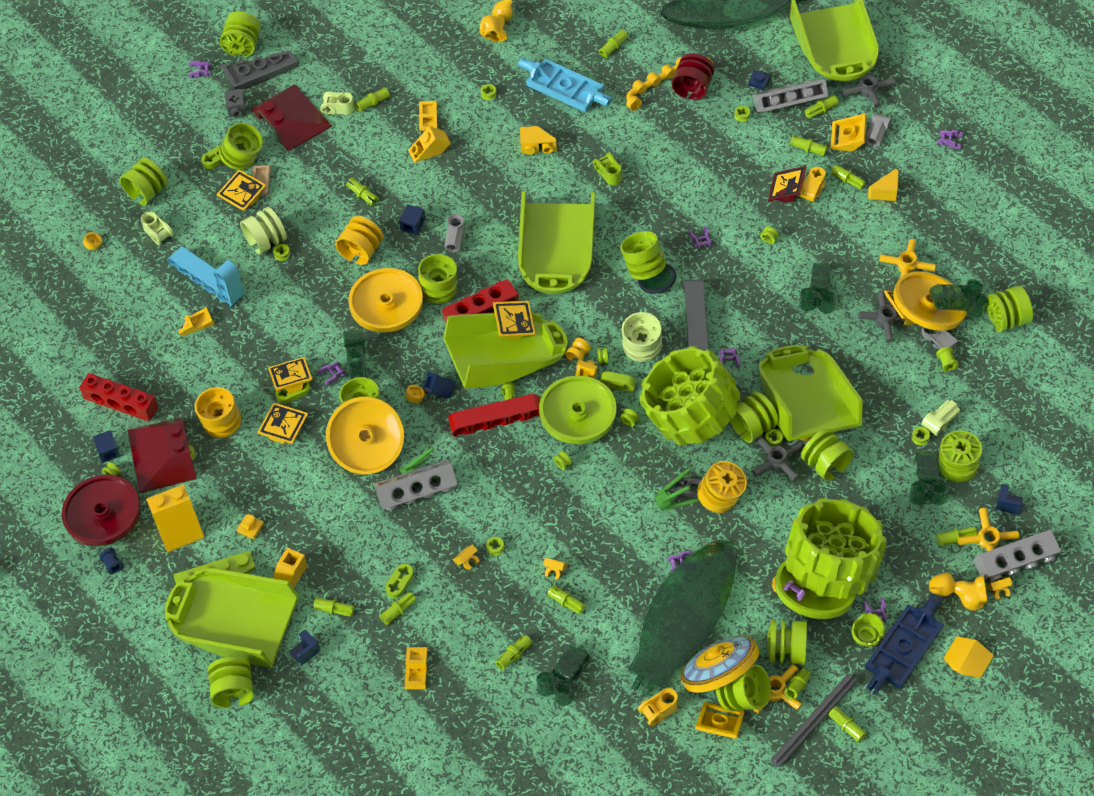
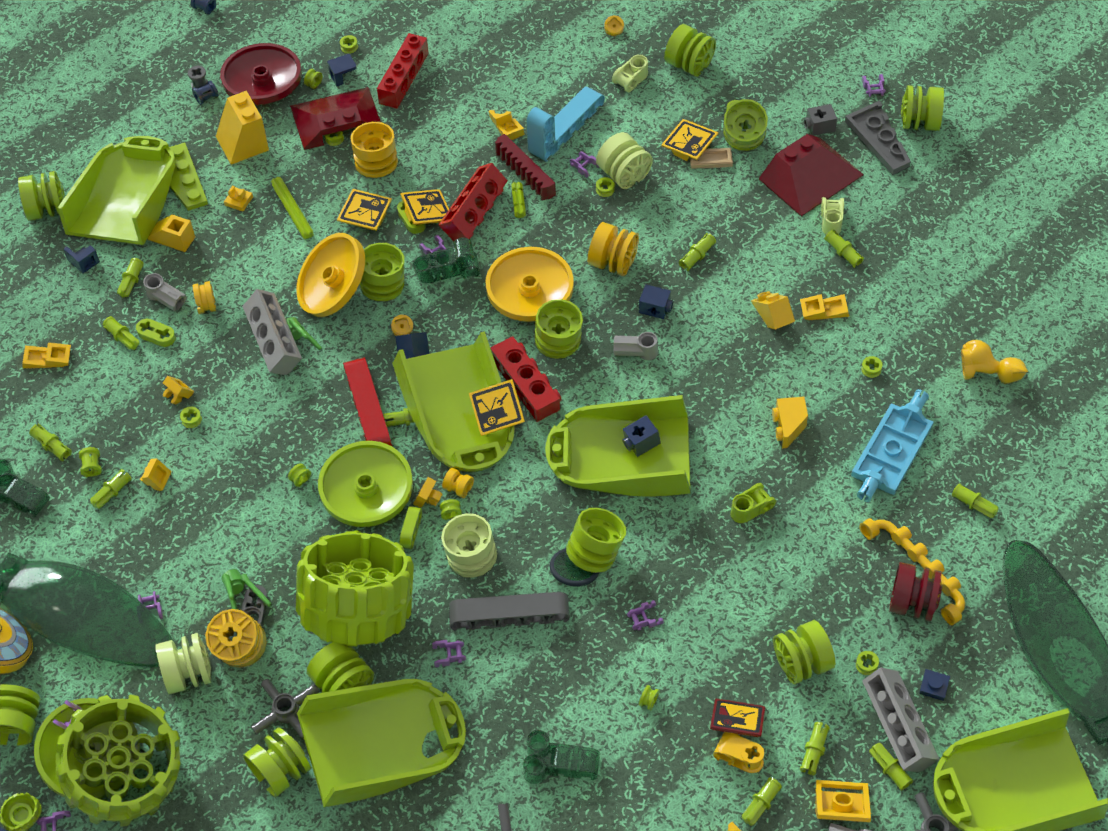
camera: 85 degrees right, 0 degrees up
(64, 445) = (353, 44): none -> lime bush
(94, 564) = (197, 76): none -> dark grey bush
(243, 267) = (587, 159): none -> medium lavender piece
(251, 305) = (525, 167): none -> dark red gear
(267, 483) = (292, 208): none -> lime axle
(285, 313) = (518, 200): none -> lime axle
(290, 339) = (473, 202): none -> red brick
(357, 575) = (163, 292): none -> light grey piece
(368, 539) = (204, 297): none -> yellow wheel
(538, 617) = (90, 462): none -> lime bush
(545, 229) = (641, 436): none -> brick
(739, 140) = (804, 652): none -> lime wheel
(742, 520) = (183, 663): none -> yellowish green wheel

